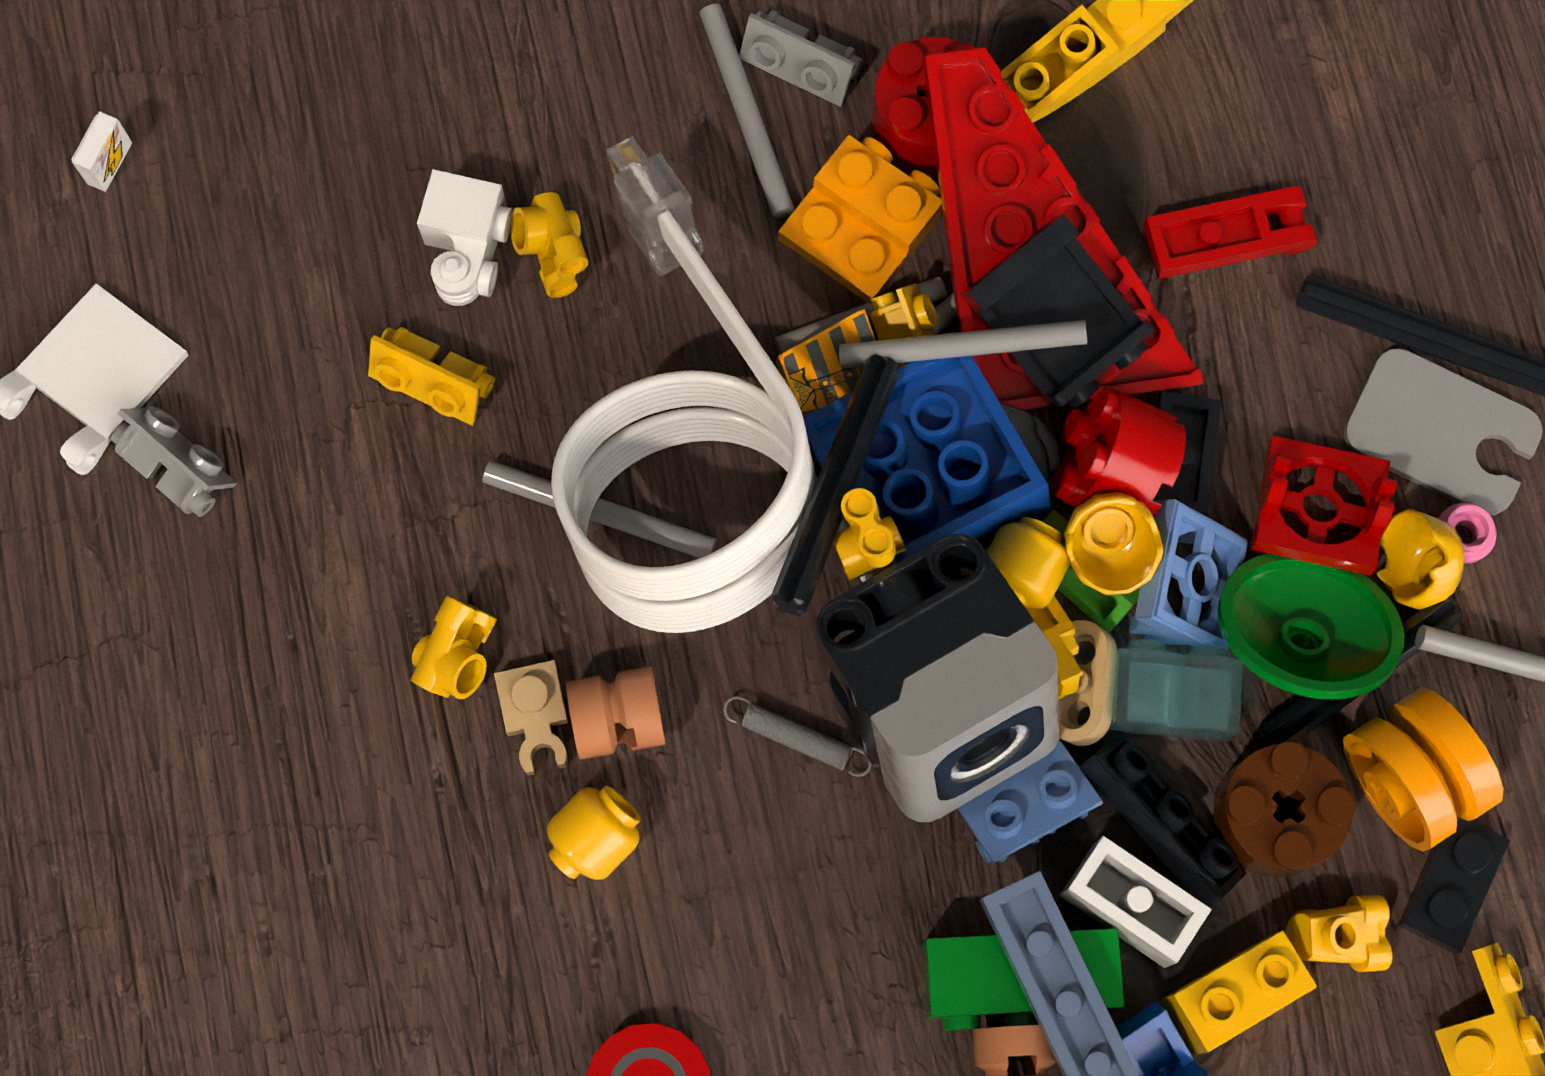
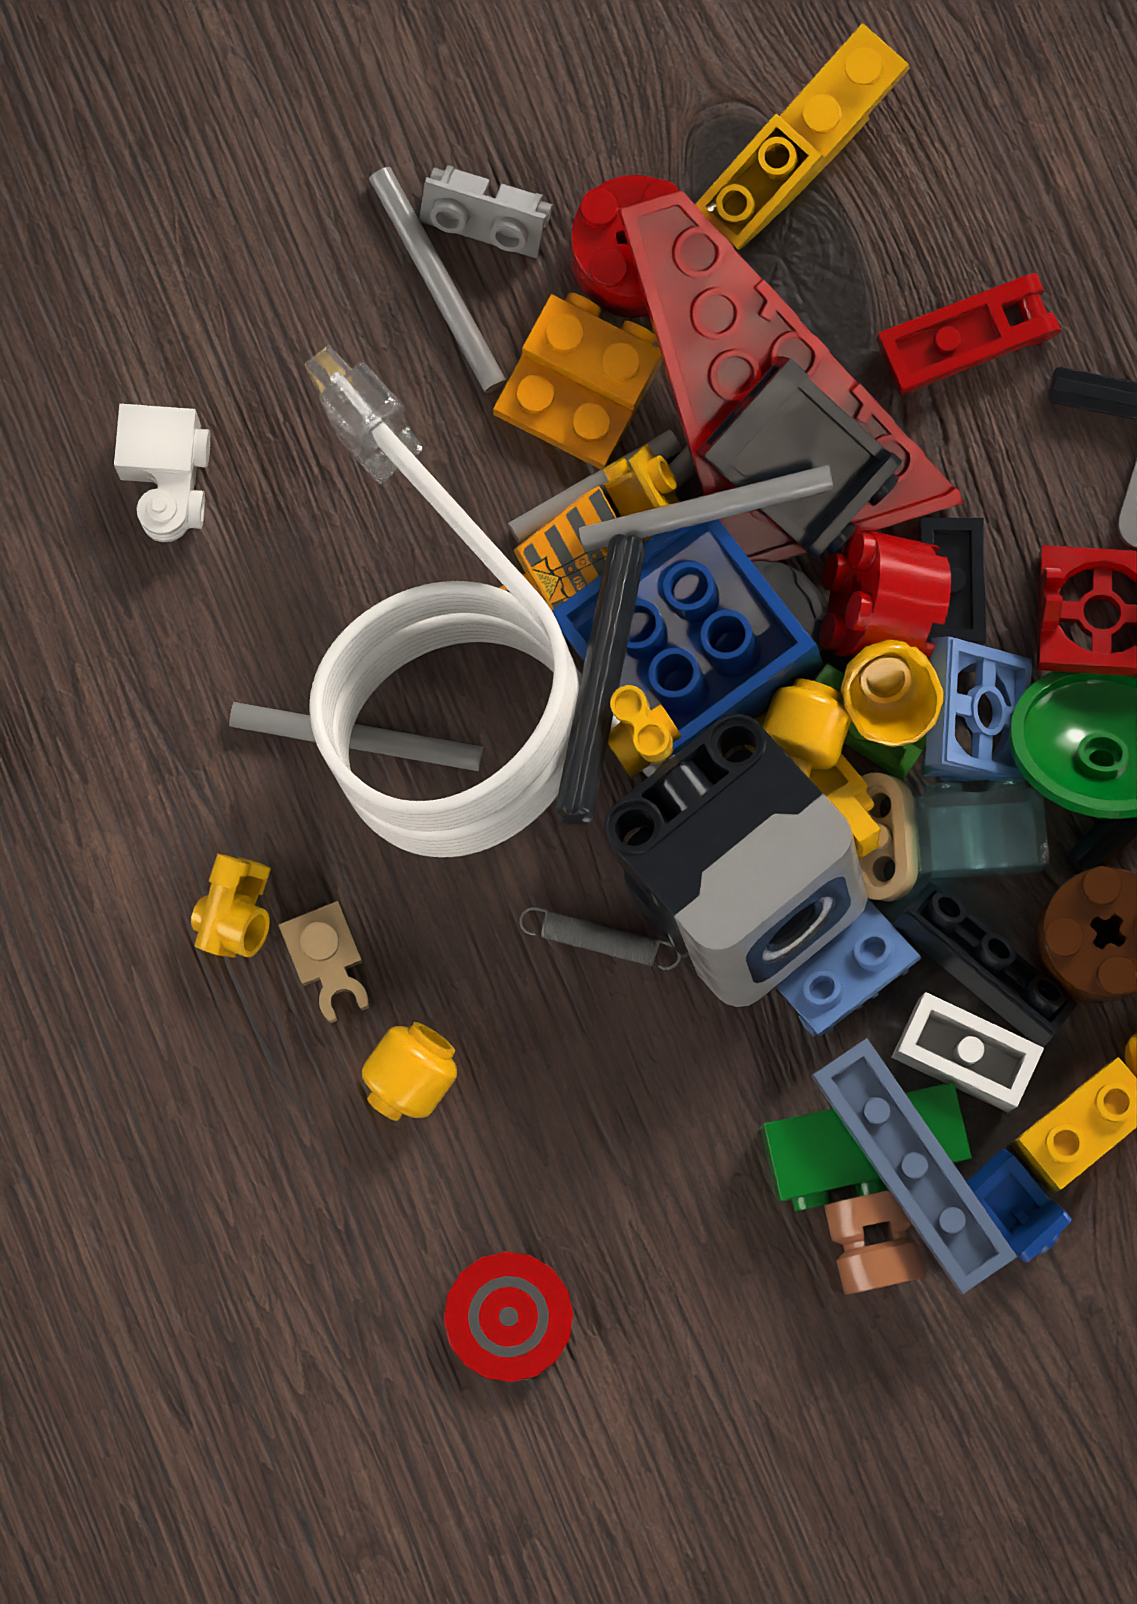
camera: 10 degrees left, 5 degrees up
(406, 365) = (125, 615): yellow hinge -> none
(554, 237) = (257, 452): yellow plate -> none
(615, 712) = (411, 945): nougat wheel -> none

